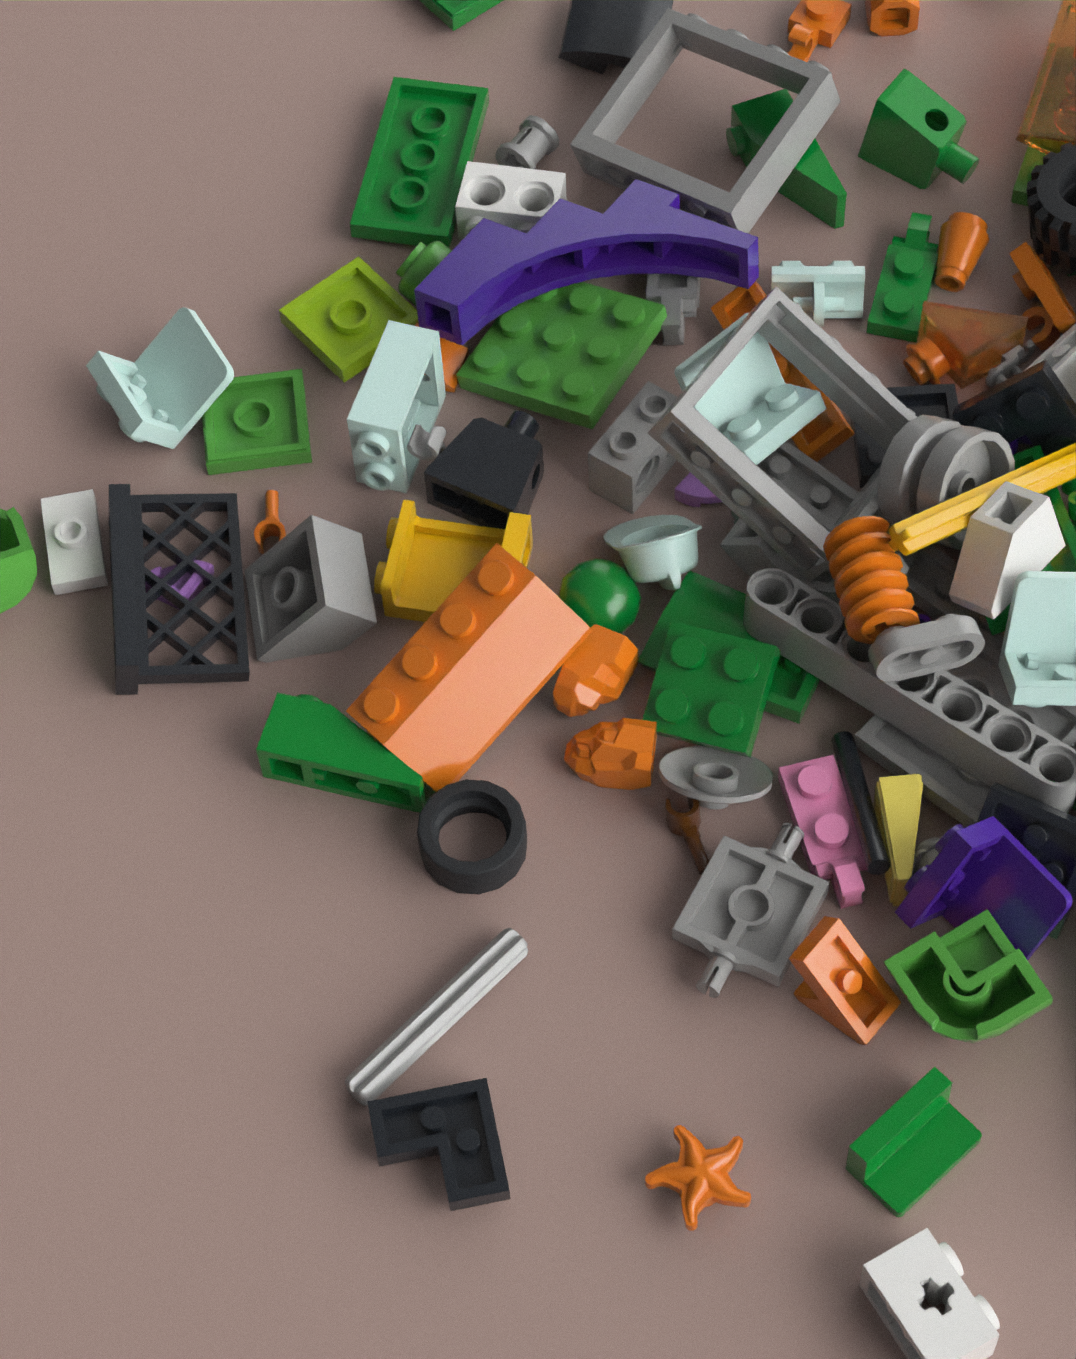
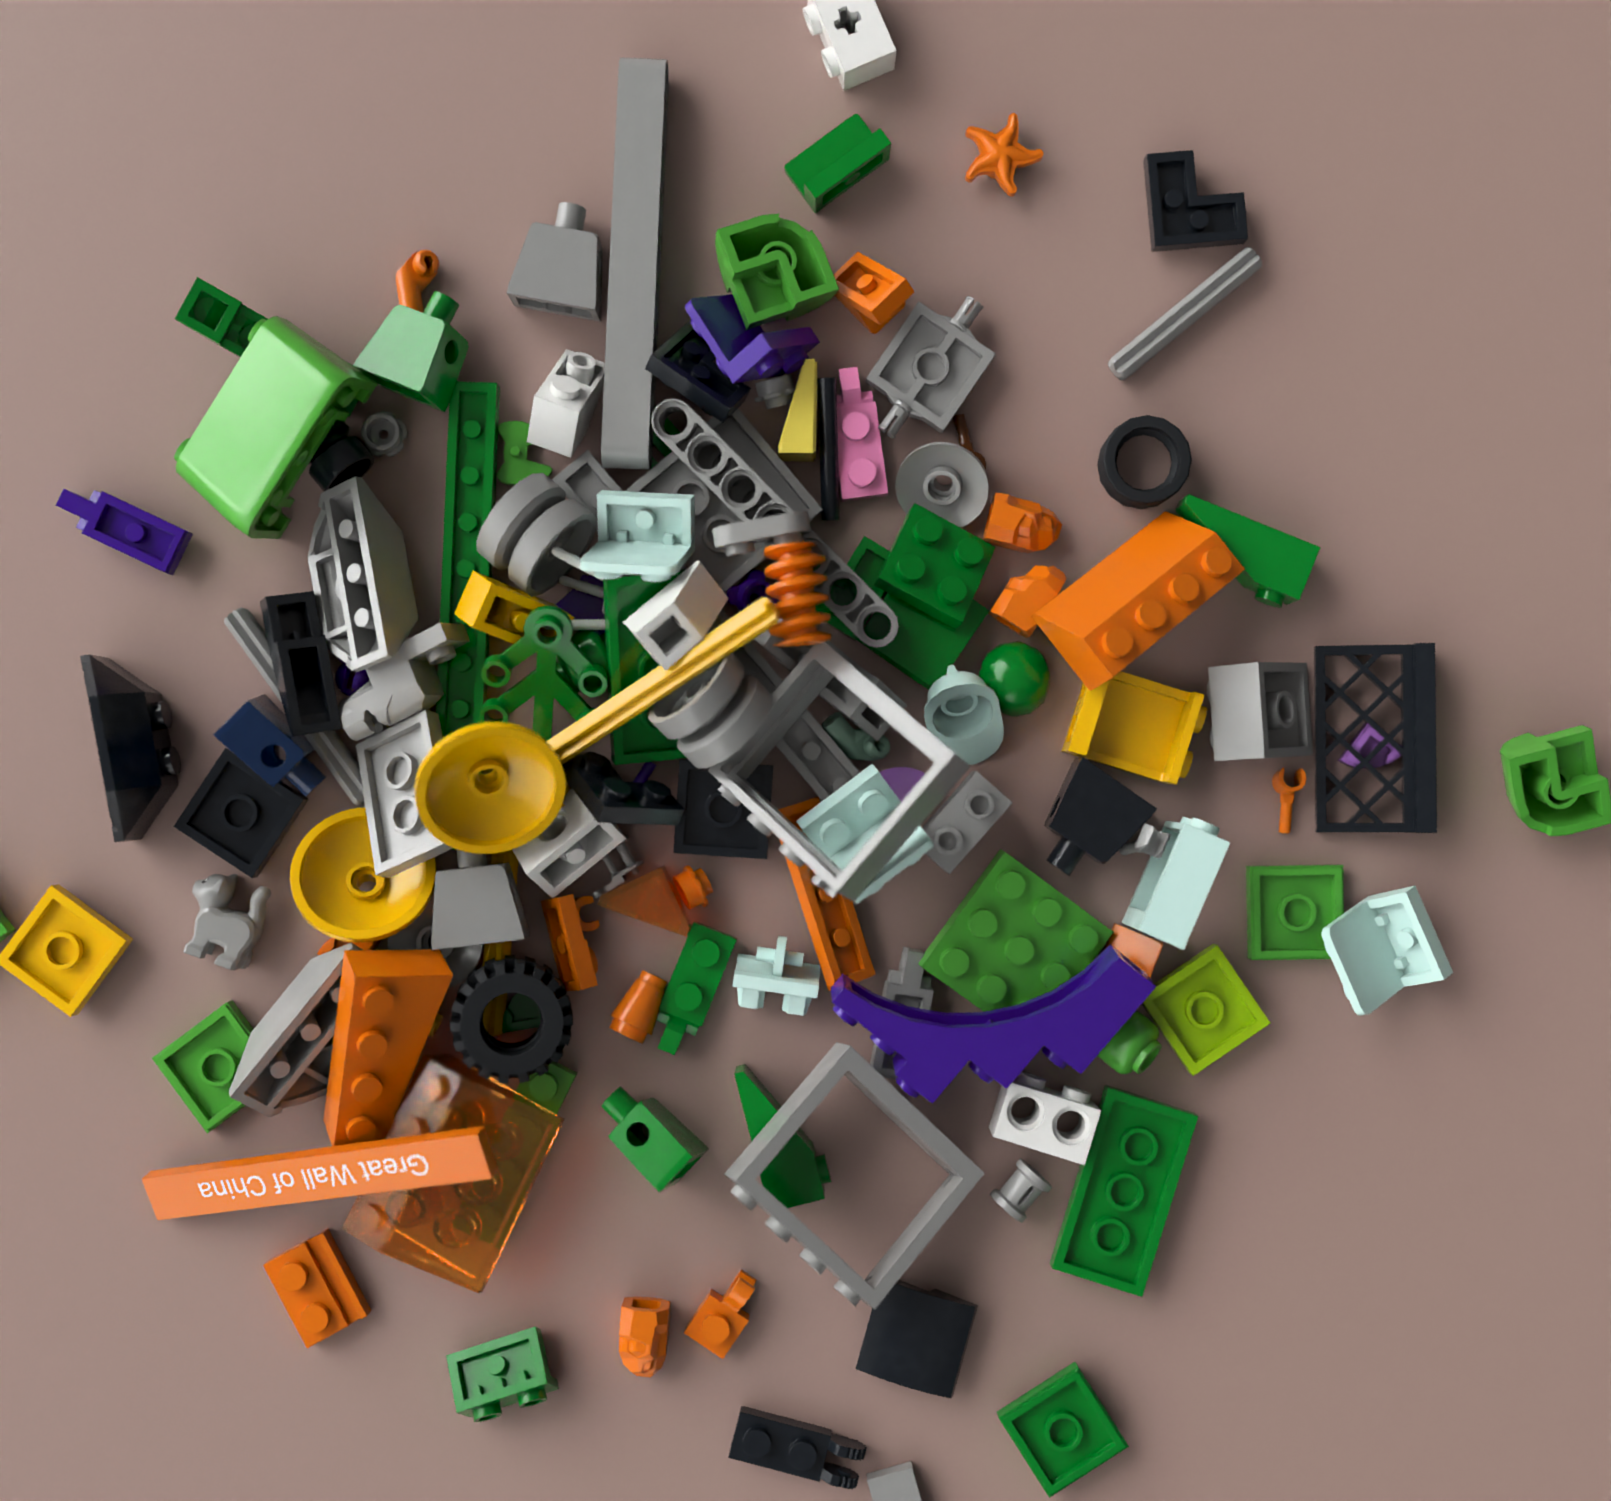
camera: 175 degrees left, 30 degrees up
(74, 542) = (1462, 803): white plate -> none

